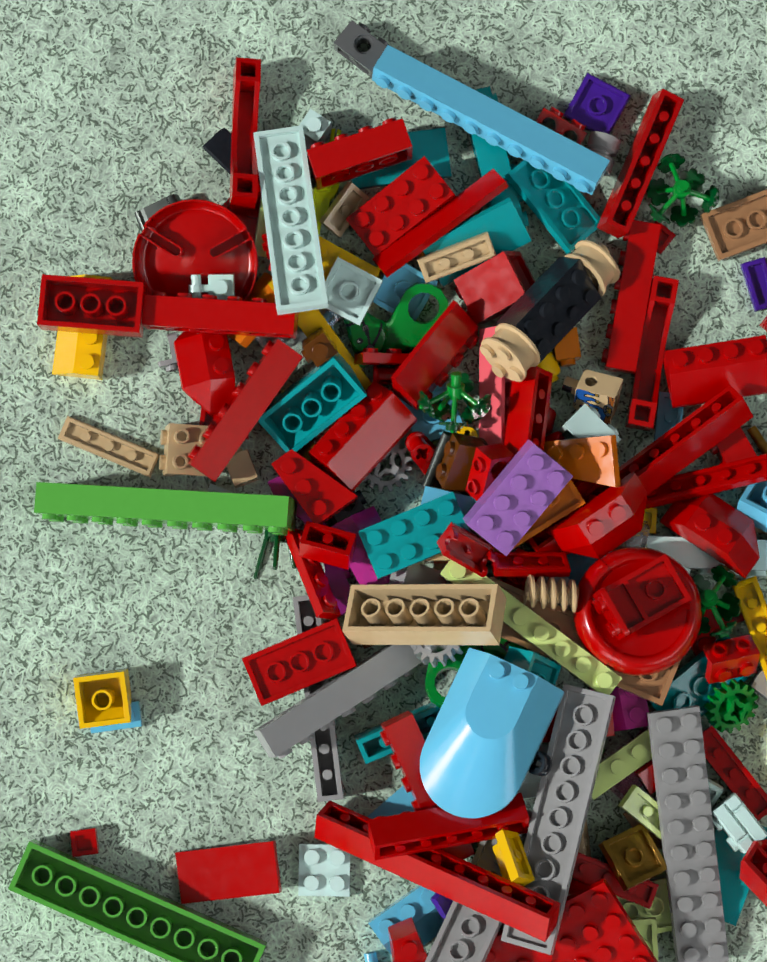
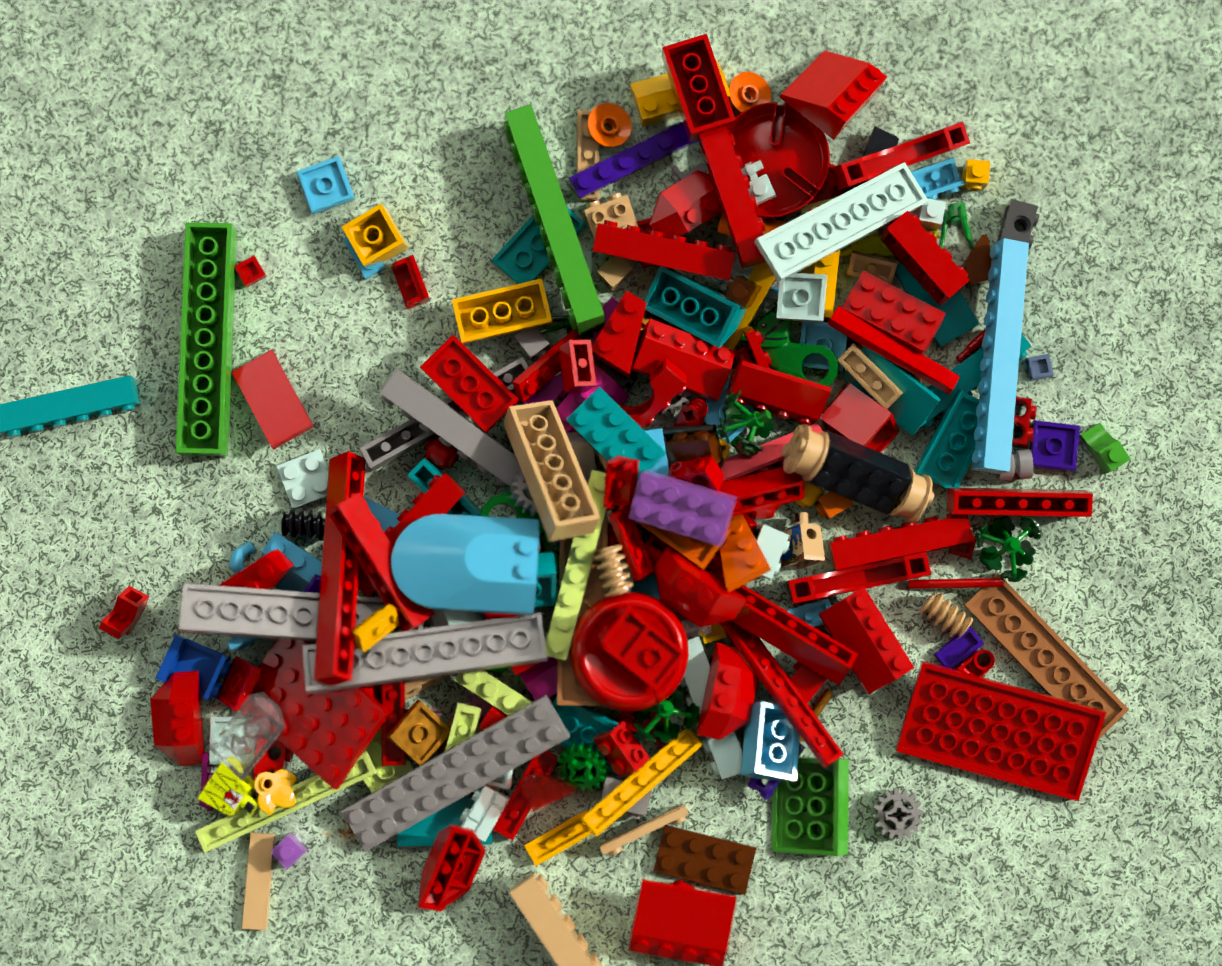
camera: 60 degrees right, 0 degrees up
(27, 728) = (325, 185): none -> medium azure plate
(86, 401) = (616, 118): none -> orange dish
(109, 249) = (753, 86): none -> orange dish
(133, 406) = (630, 160): none -> dark purple plate
(150, 172) = (833, 91): none -> red slope
(165, 681) = (410, 282): none -> red hinge
(184, 552) = (524, 254): none -> teal tile
(236, 599) = (502, 311): none -> yellow slope
(279, 581) = (532, 342): none -> light grey brick
(281, 105) = (938, 178): none -> medium azure bracket
(293, 68) = (975, 174): none -> yellow brick
(328, 103) = (957, 216): none -> green plant
(355, 723) = (440, 454): none -> red head
(371, 890) = (303, 524): none -> black piece
(382, 102) = (978, 263): none -> reddish brown slope
(382, 462) = (666, 382): none -> red arch
(464, 143) = (971, 347): none -> red pin
(512, 87) = (1039, 367): none -> sand blue tile
(545, 766) = (464, 624): black bush -> none
(620, 58) = (1104, 448): none -> bright green arch
(695, 258) = (956, 583): none -> red bar
(722, 281) = (946, 615): none -> tan piece
(741, 751) = (545, 789): none -> clear red slope

